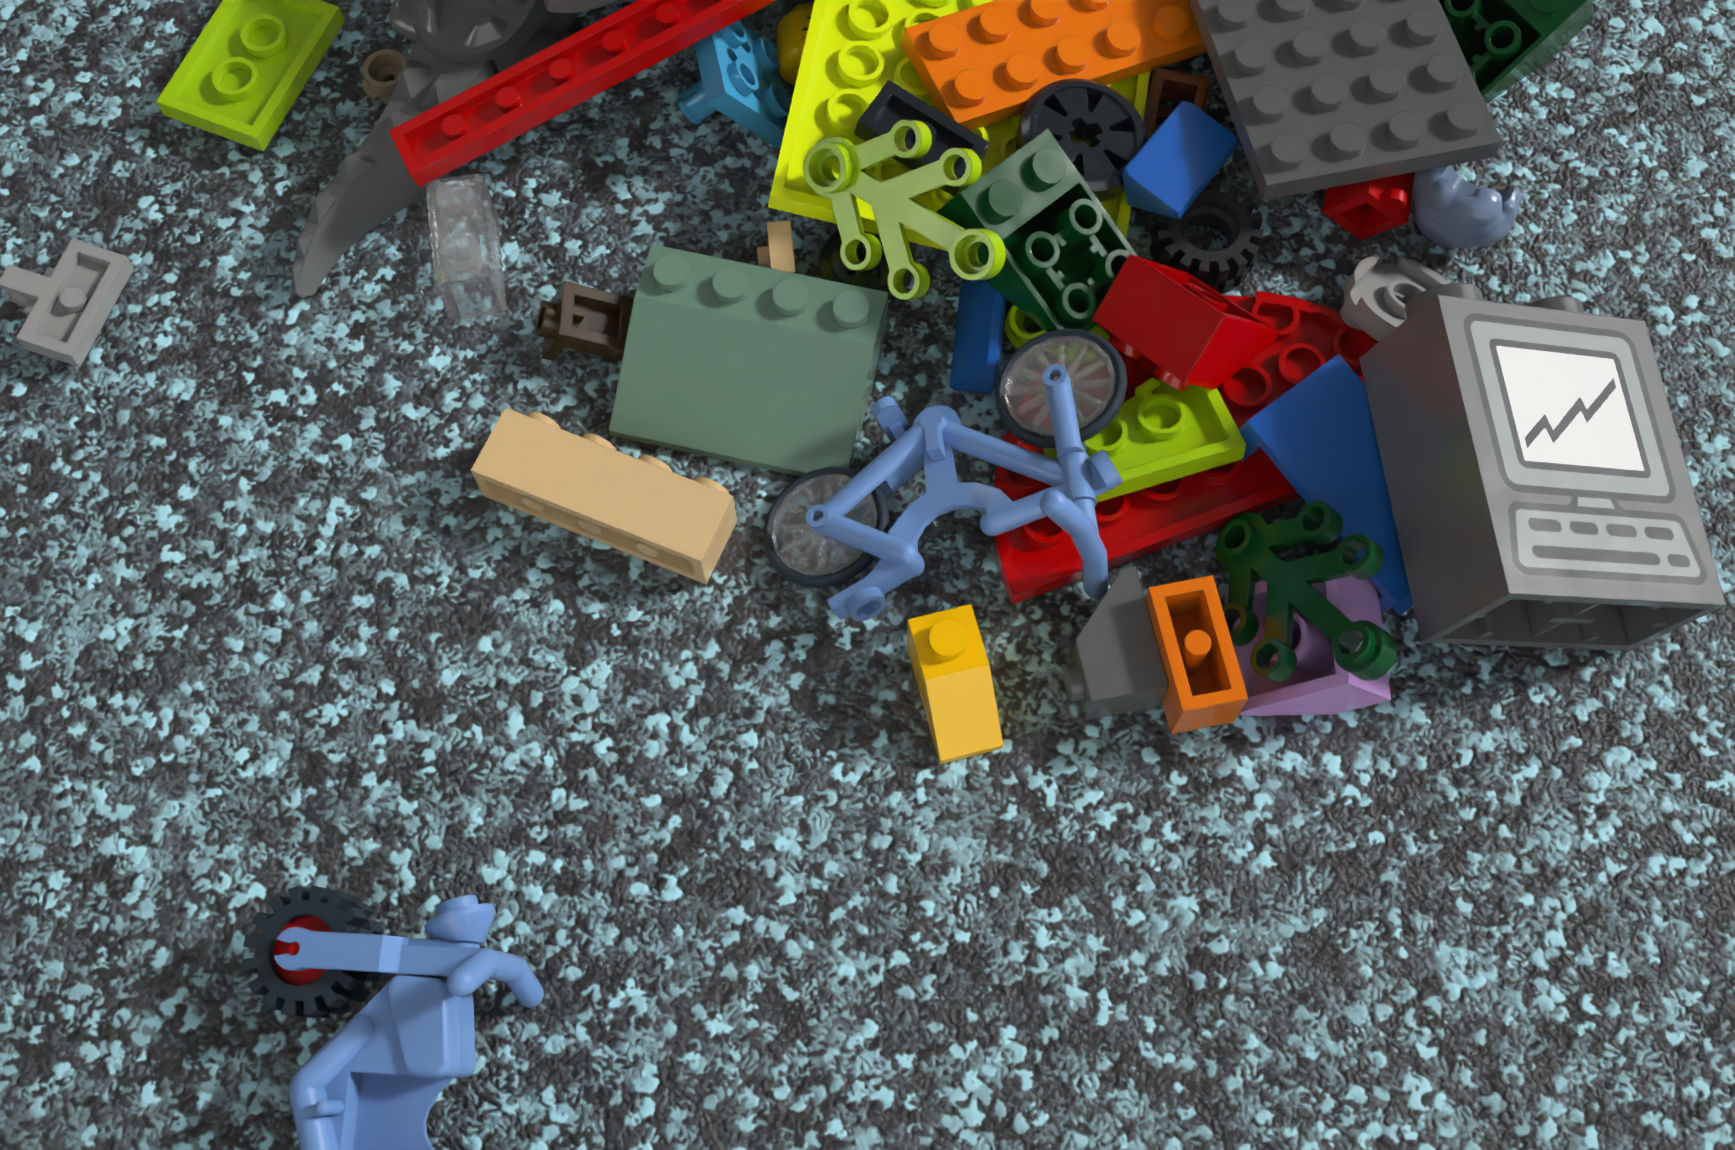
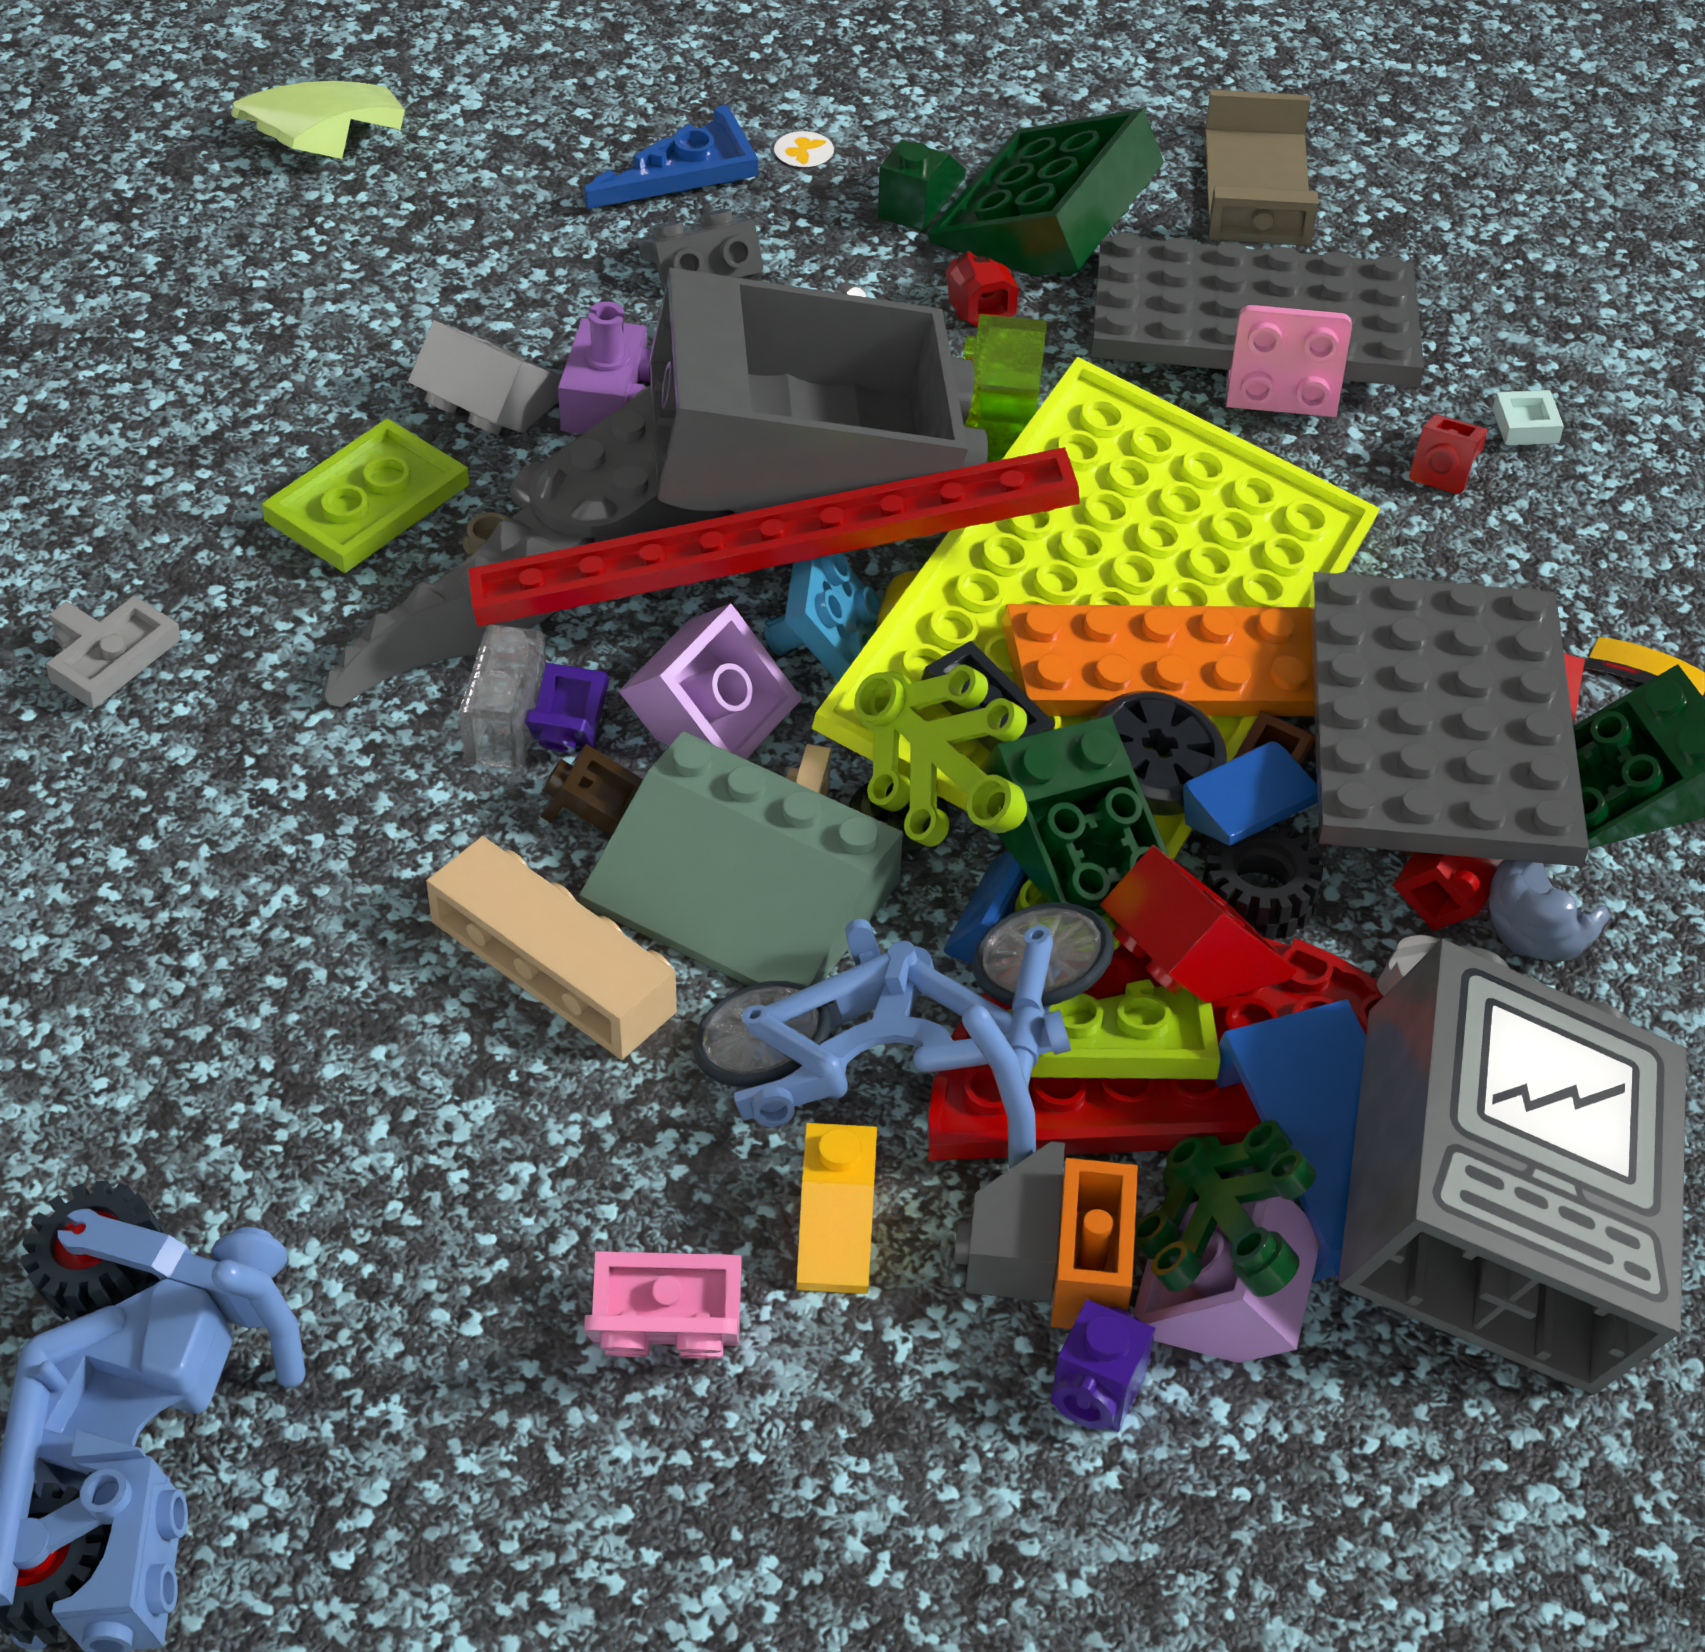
camera: 15 degrees right, 20 degrees down
(529, 240) = (568, 707): none -> dark purple bracket
(653, 182) = (713, 685): none -> lavender slope
(843, 835) = (665, 1301): none -> bright pink bracket
(1234, 767) = (1102, 1366): none -> dark purple brick

